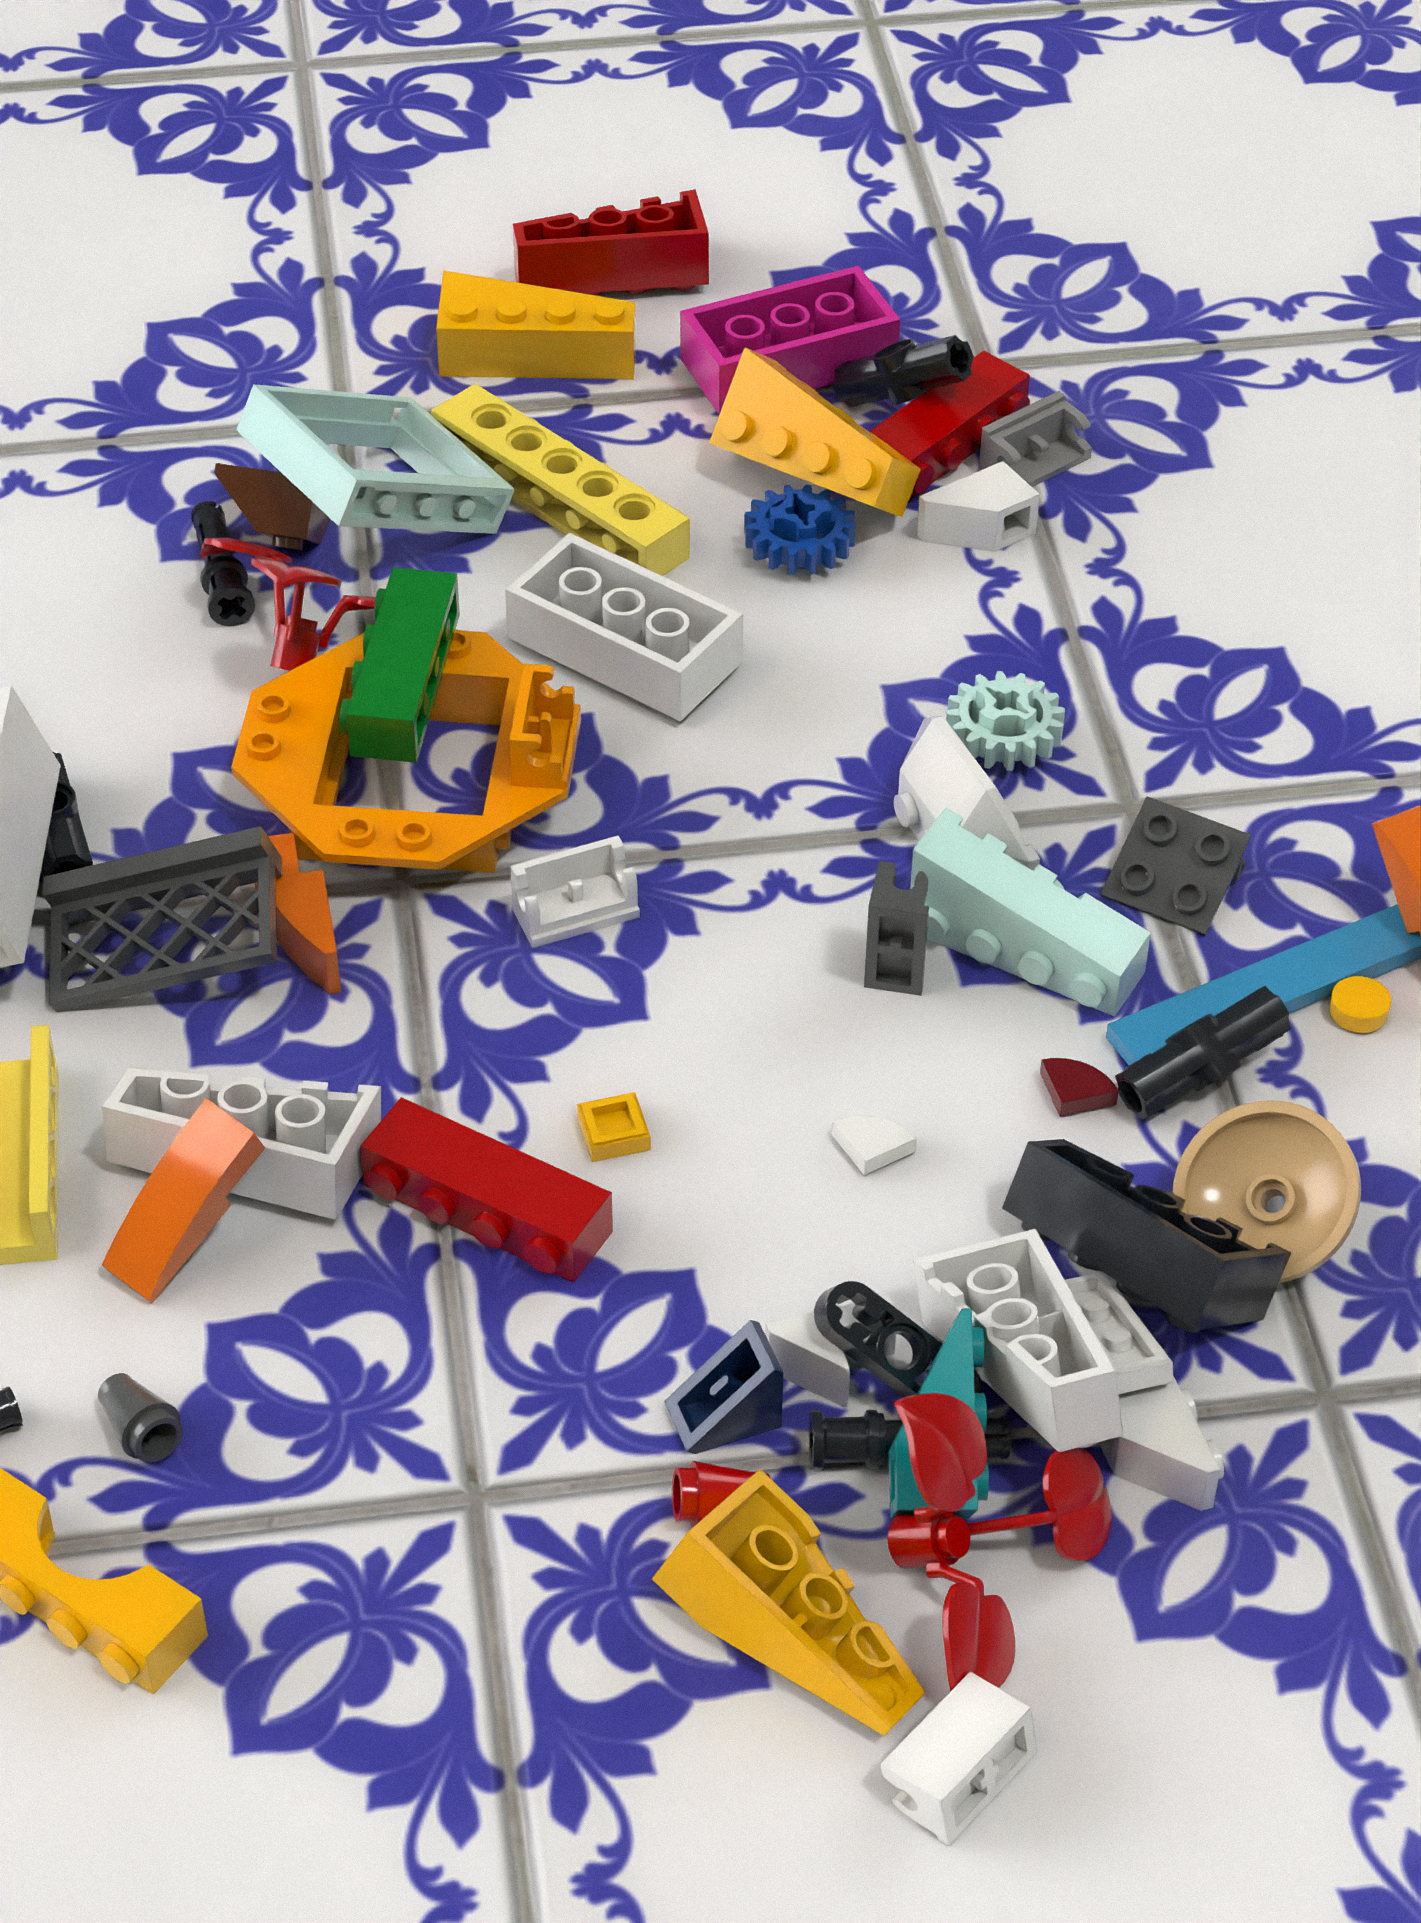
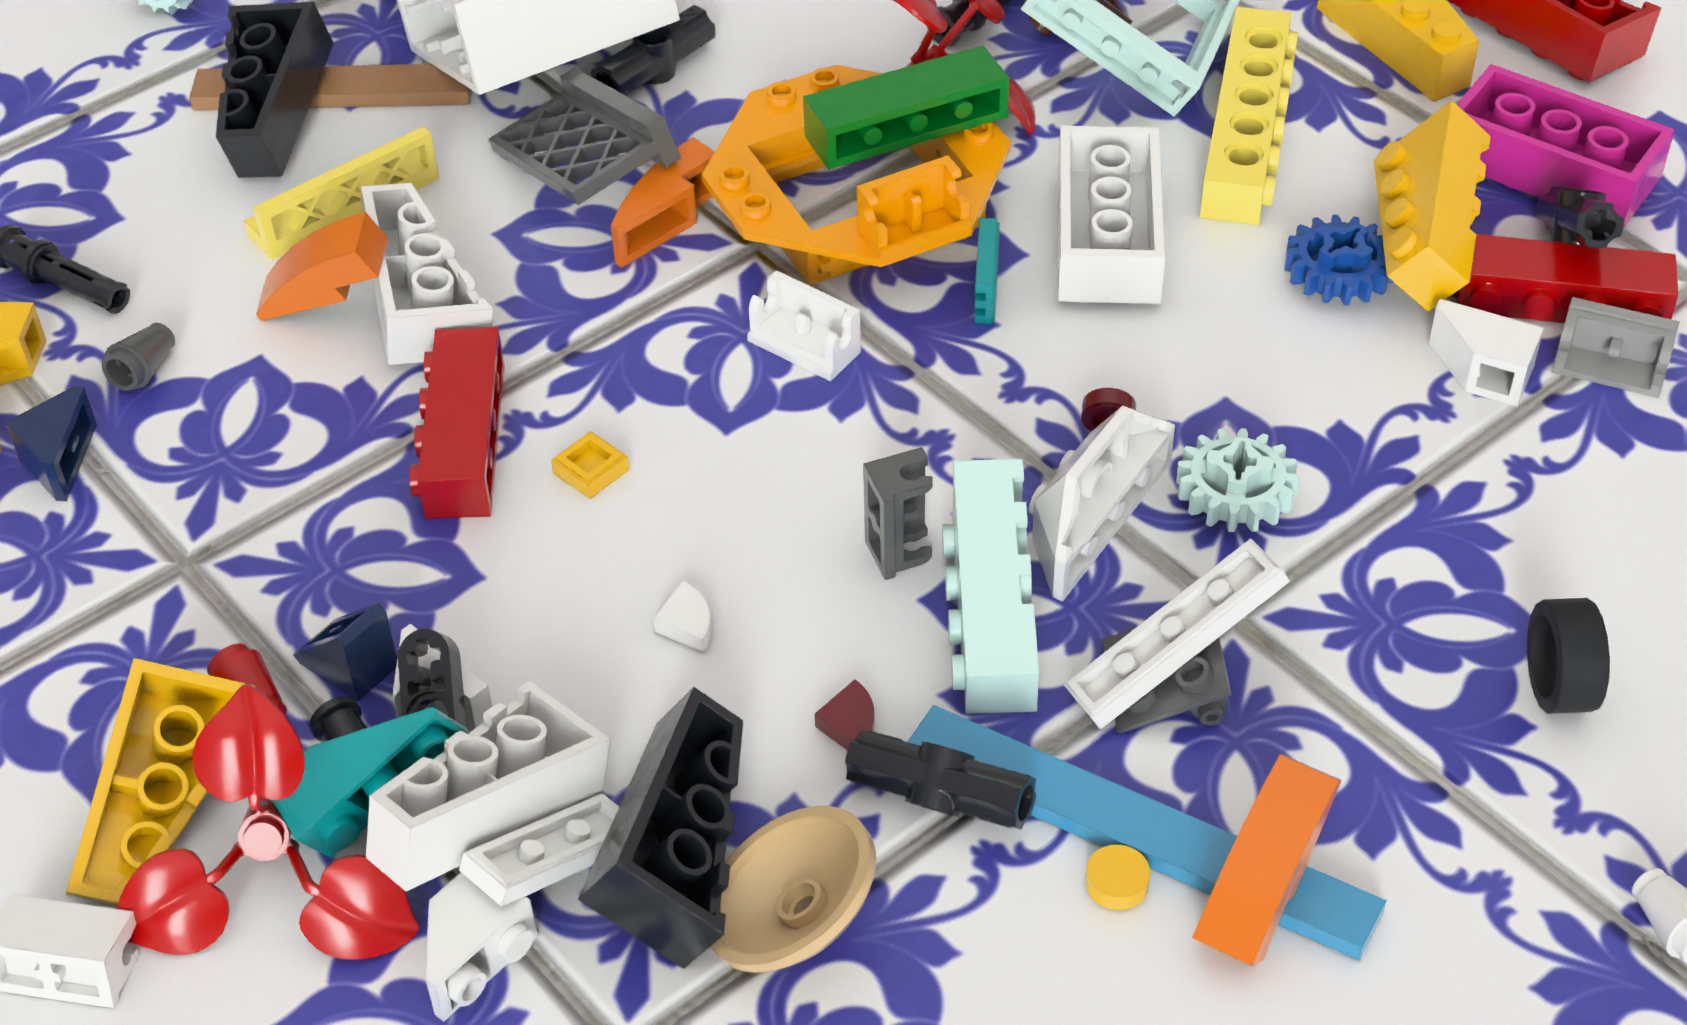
camera: 60 degrees right, 0 degrees up
(226, 1538) = (55, 439): none -> dark blue slope
(619, 745) = (987, 271): none -> teal tile
(859, 755) = (1102, 403): none -> dark red tile
(1170, 832) = (1176, 633): none -> white tile
(1361, 612) = (1568, 655): none -> black tyre

